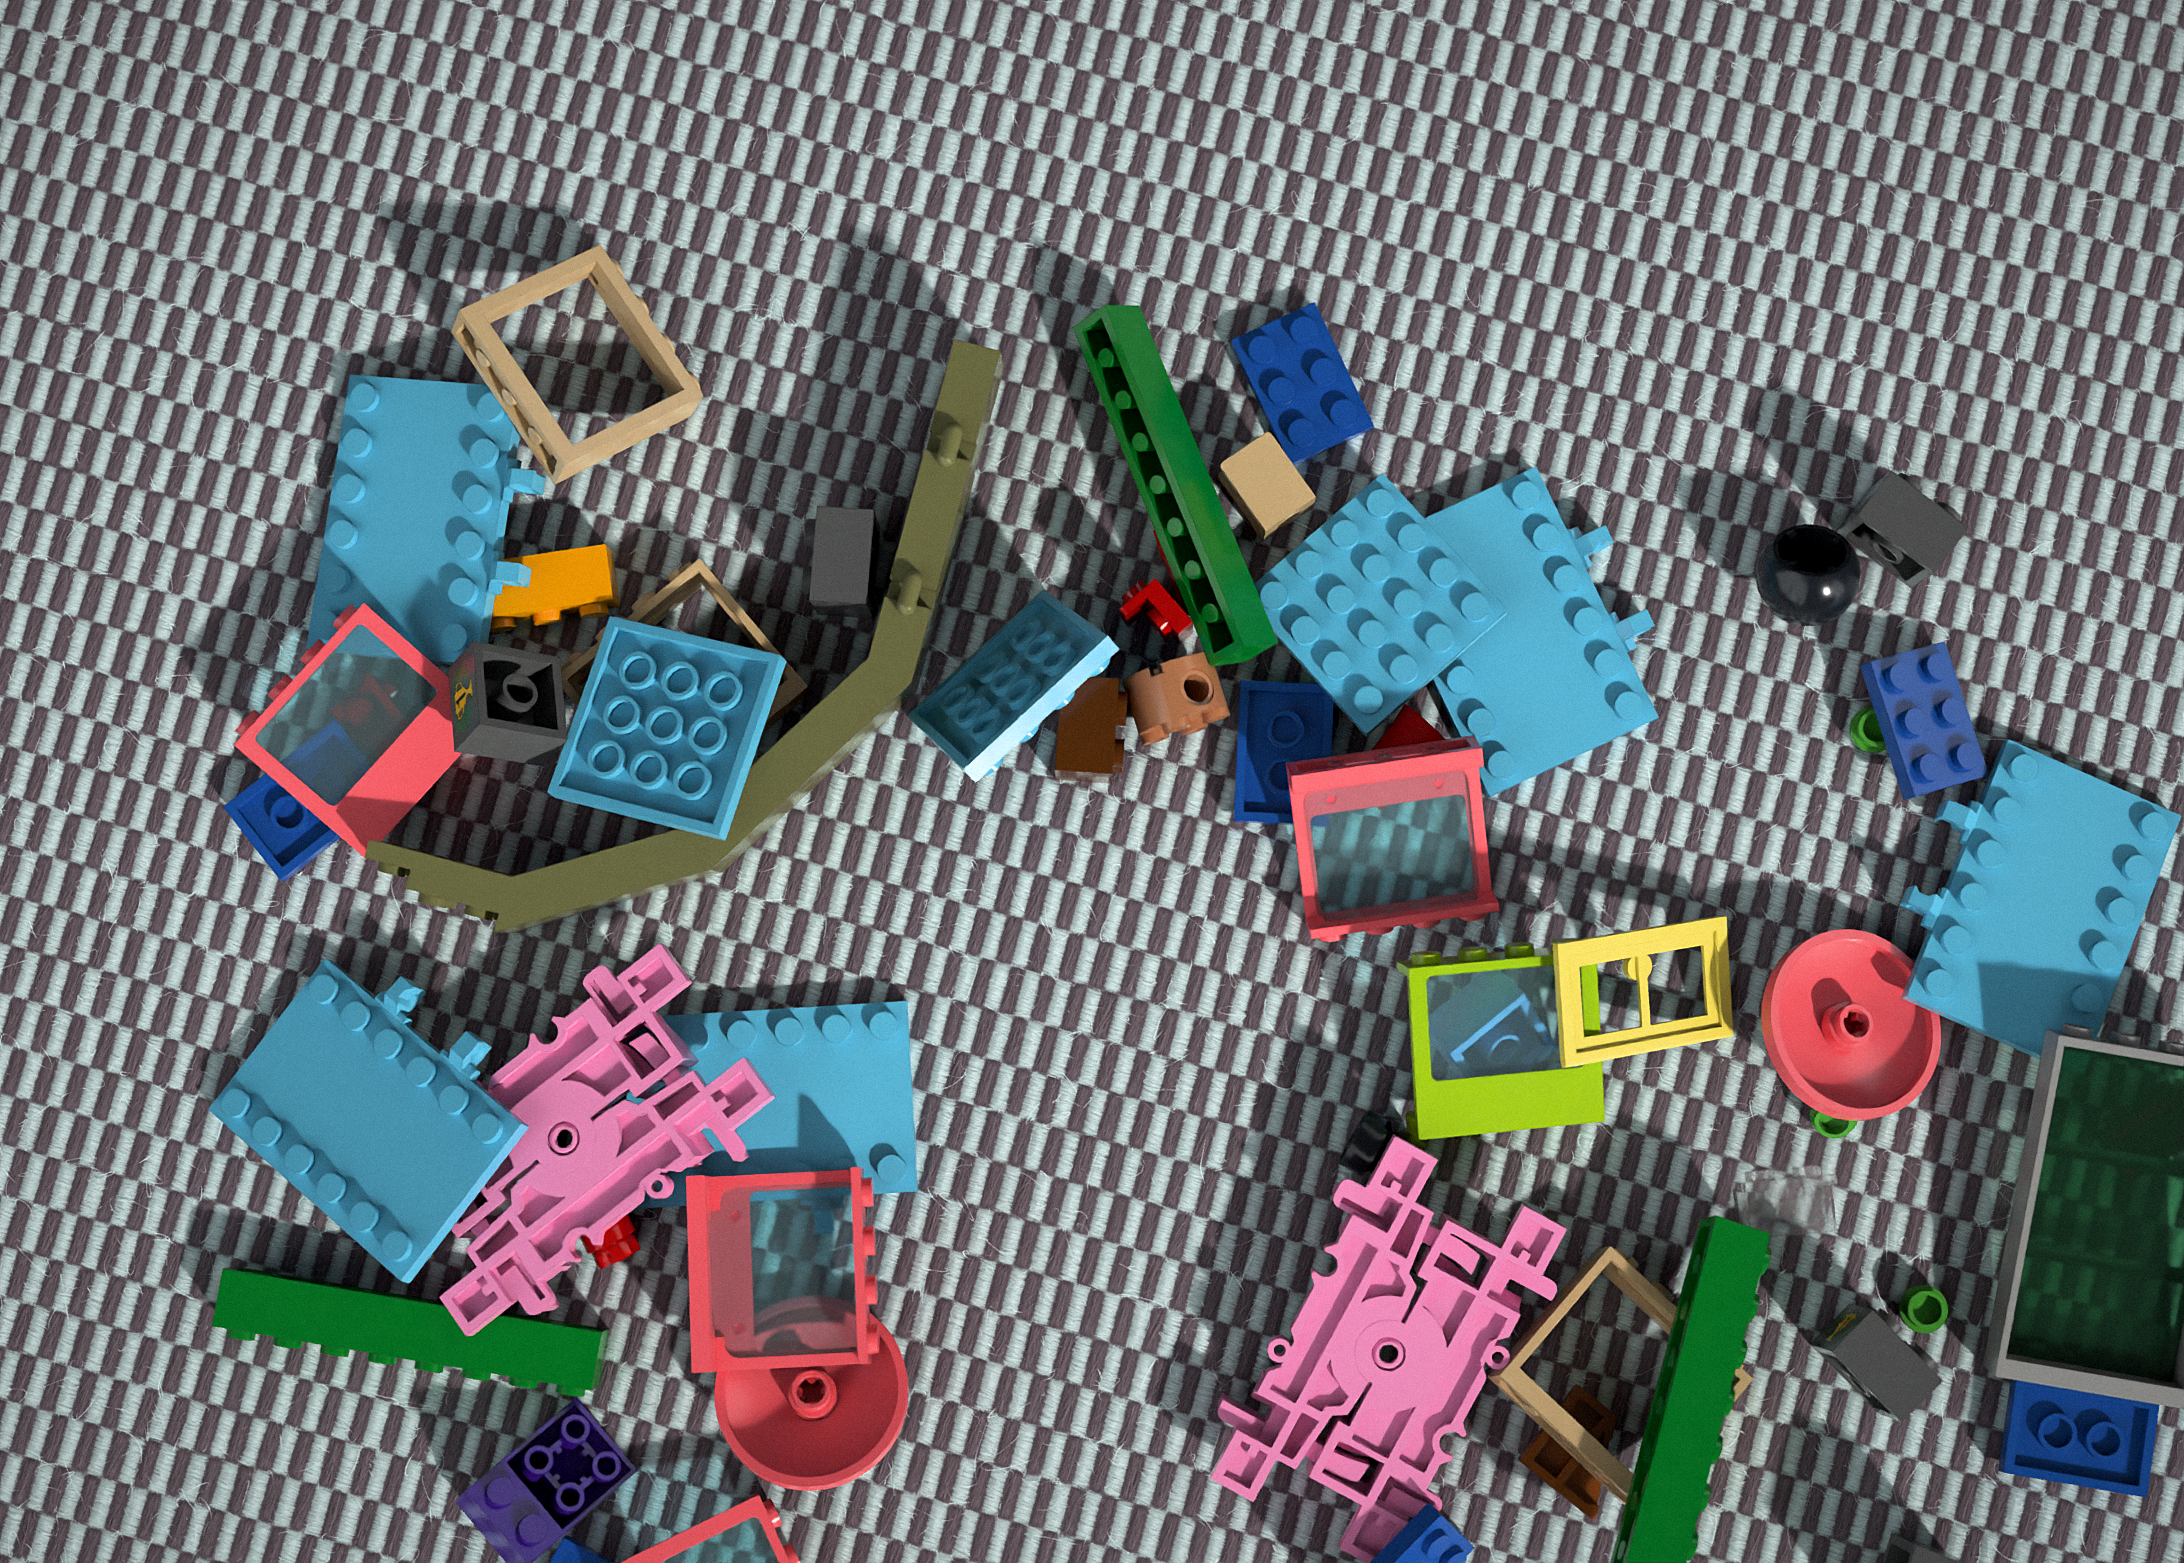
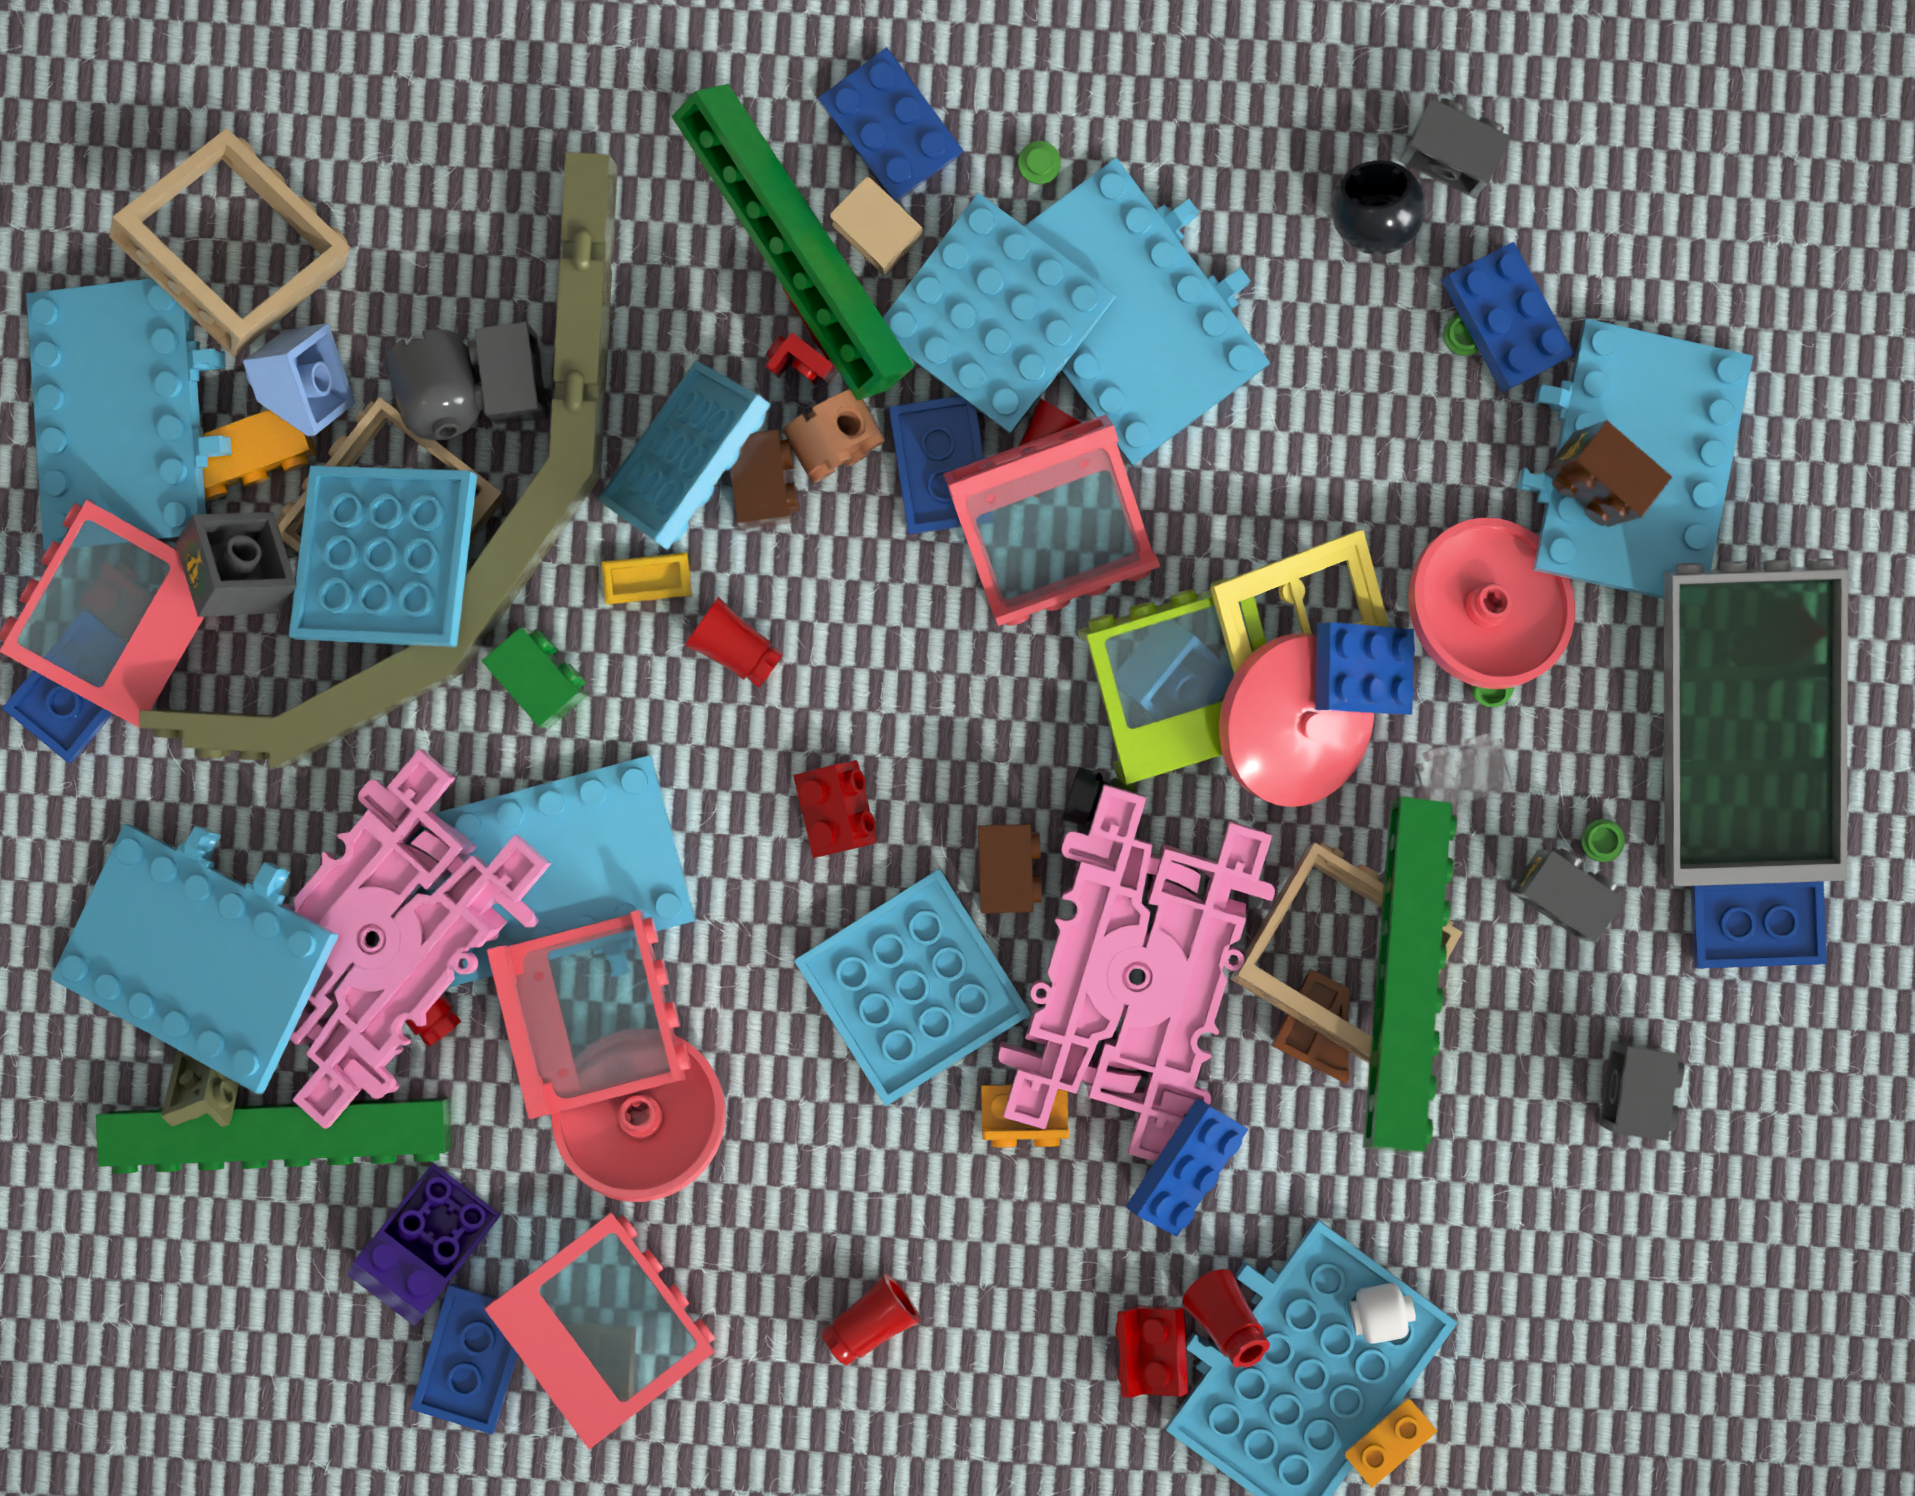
camera: 15 degrees left, 5 degrees up
(338, 1266) = (197, 1091): none -> olive bracket
(620, 521) = (301, 378): none -> light blue slope
(760, 557) = (434, 384): none -> dark grey cylinder
(801, 891) = (536, 677): none -> green brick
(942, 810) = (646, 578): none -> yellow tile
(1022, 900) = (734, 644): none -> red plant
(1094, 1100) = (835, 808): none -> red bracket
(1138, 1313) = (912, 987): none -> medium azure plate
(1208, 1495) = (1006, 1132): none -> light orange bracket
(1269, 1205) = (1007, 868): none -> reddish brown brick
(1452, 455) = (1039, 162): none -> bright green plate
(1616, 1107) = (1275, 735): none -> coral dish
(1700, 1067) = (1364, 669): none -> blue plate
(2006, 911) = (1607, 474): none -> reddish brown brick

